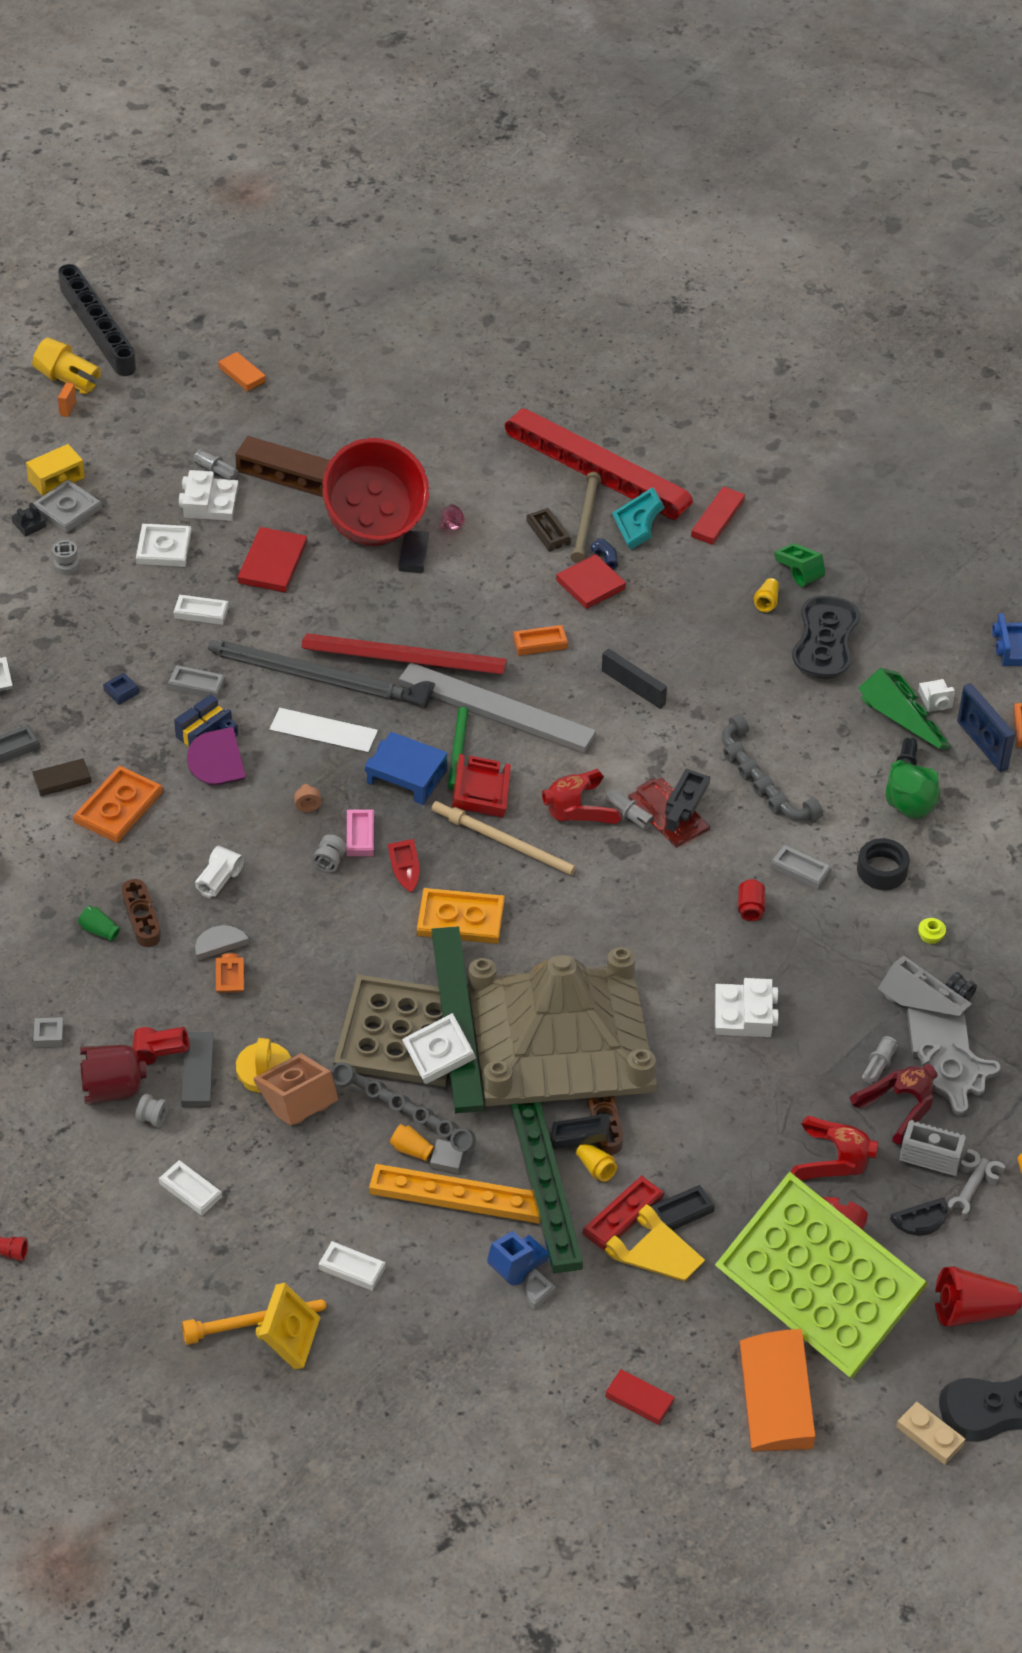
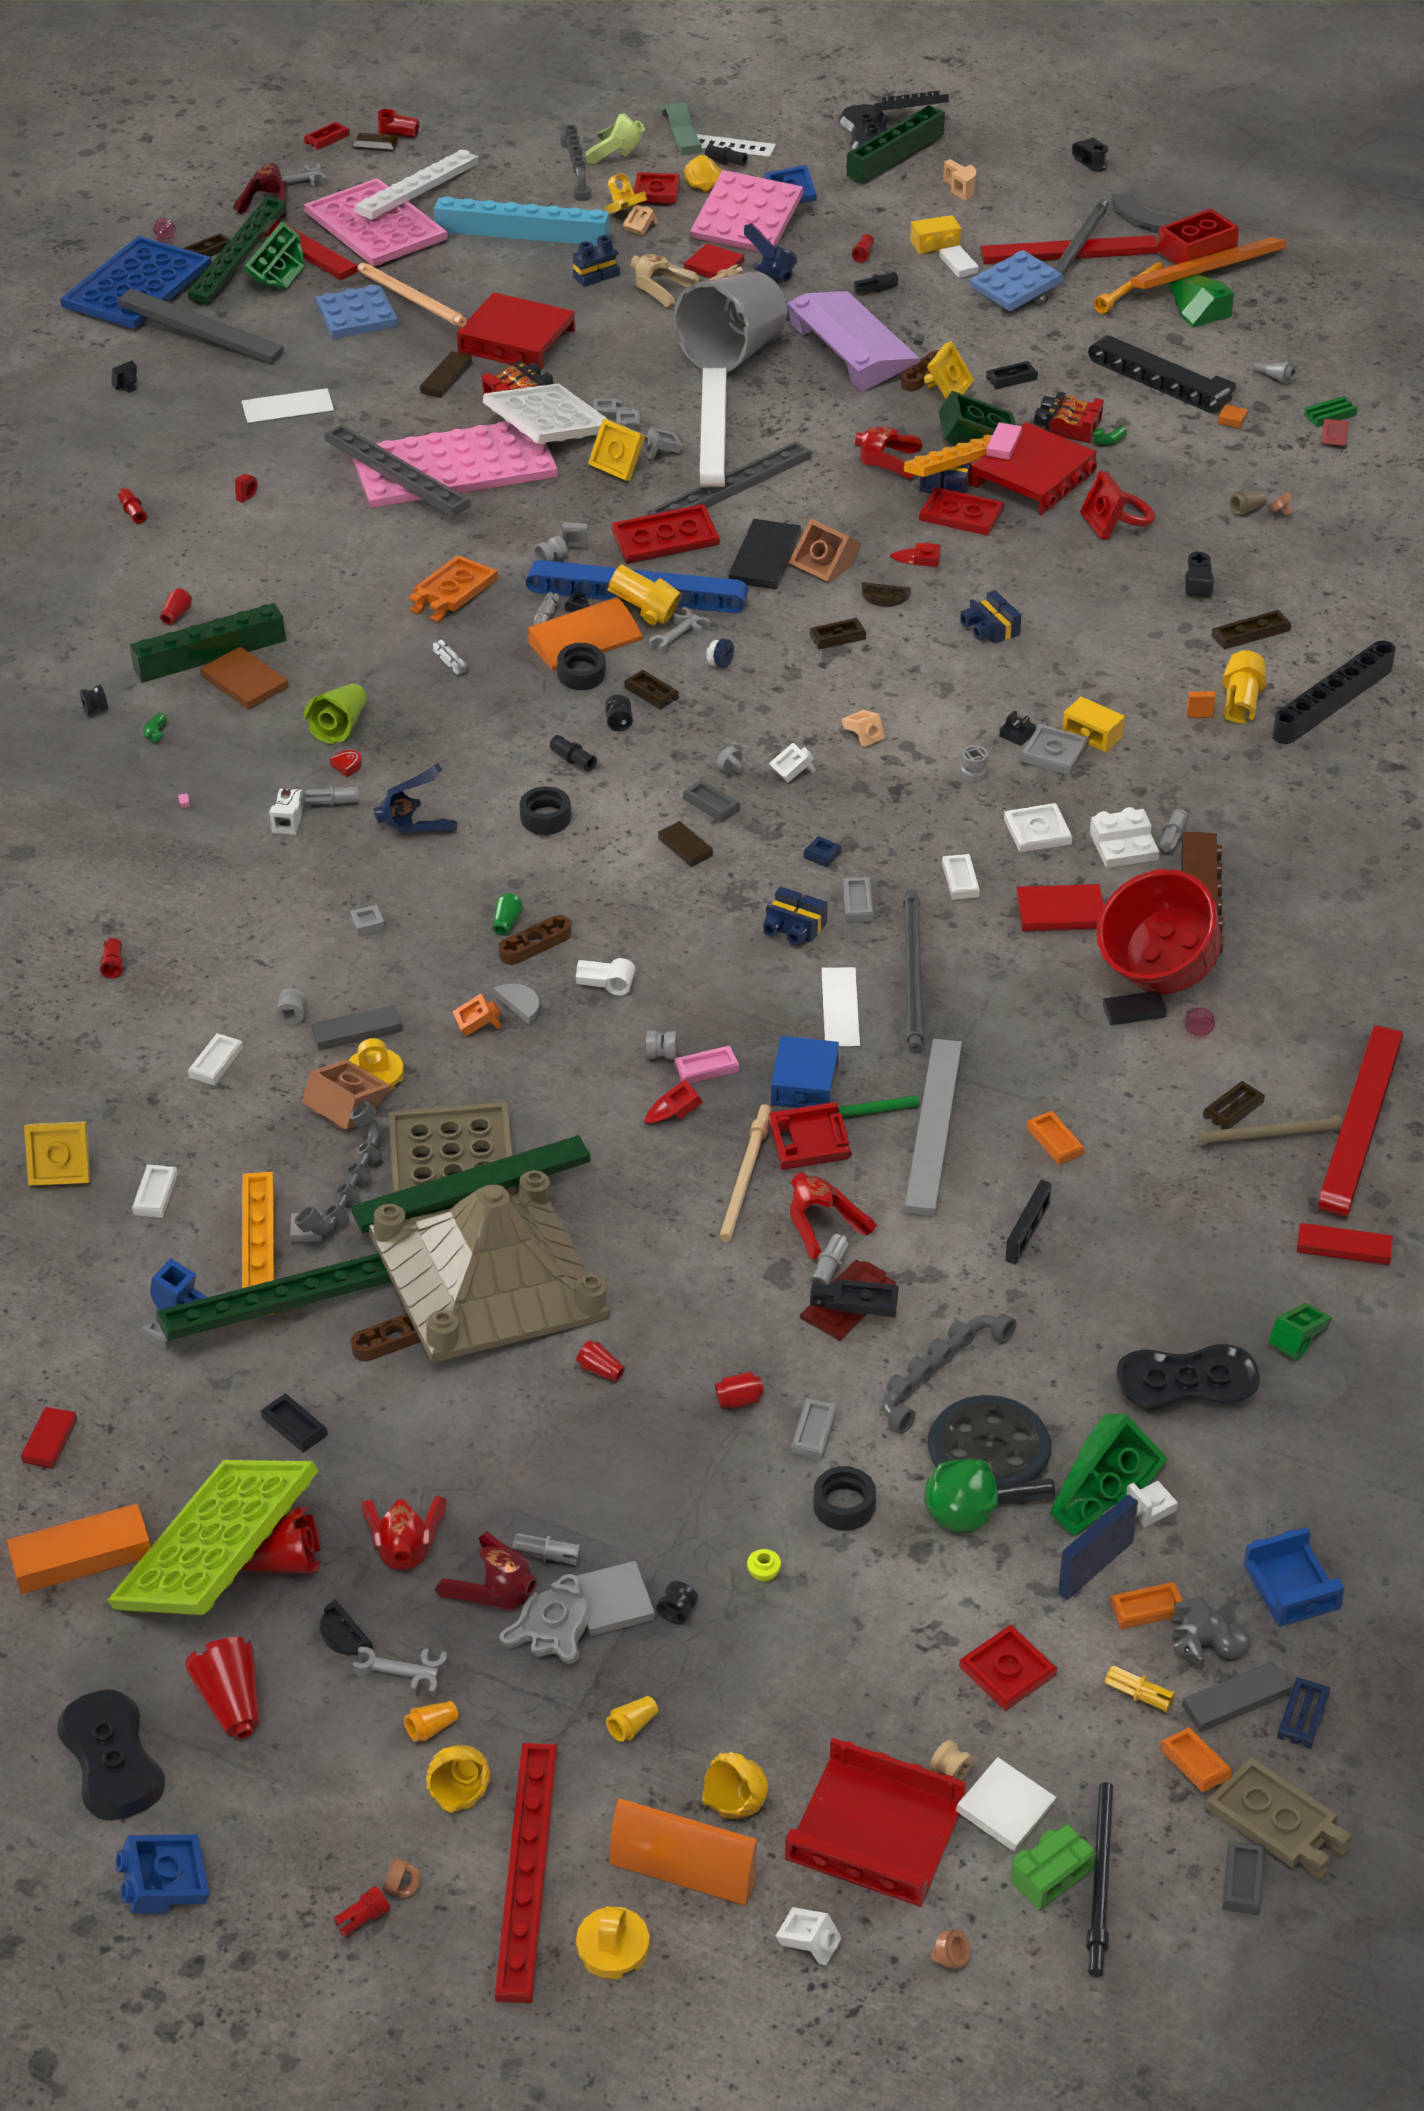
camera: 75 degrees right, 5 degrees down
(111, 1073) = (315, 958): dark red cylinder -> none
(118, 804) = (669, 889): orange tile -> none
(153, 1043) = (370, 988): red piece -> none
(195, 1331) = (49, 1100): light orange piece -> none
(216, 757) = (749, 931): magenta tile -> none
(242, 371) = (1331, 814): orange tile -> none
(307, 798) = (729, 1011): nougat tile -> none
(404, 653) = (972, 1036): red tile -> none
(410, 1142) = (310, 1190): light orange cone -> none
(419, 693) = (918, 1059): black tile -> none
(439, 1048) = (419, 1175): white tile -> none
(475, 914) = (625, 1166): light orange tile -> none
(580, 1131) = (360, 1313): black tile -> none
(590, 581) = (1169, 1158): red tile -> none
(598, 1163) = (328, 1339): yellow cone -> none
(608, 550) = (1224, 1162): dark blue arm -> none
(622, 1212) = (275, 1377): red tile -> none
(637, 517) = (1287, 1167): teal tile -> none
(658, 1251) = (231, 1413): yellow flag -> none
(688, 981) = (600, 1361): none -> red cone
(746, 1008) = (582, 1419): white plate -> none
(767, 596) = (1229, 1311): yellow cone -> none
(837, 790) = (1015, 1417): none -> clear smoke wedge
(916, 988) = (653, 1561): light grey slope -> none
(930, 1433) = (56, 1688): tan plate -> none
(932, 1148) = (425, 1611): light grey brick -> none

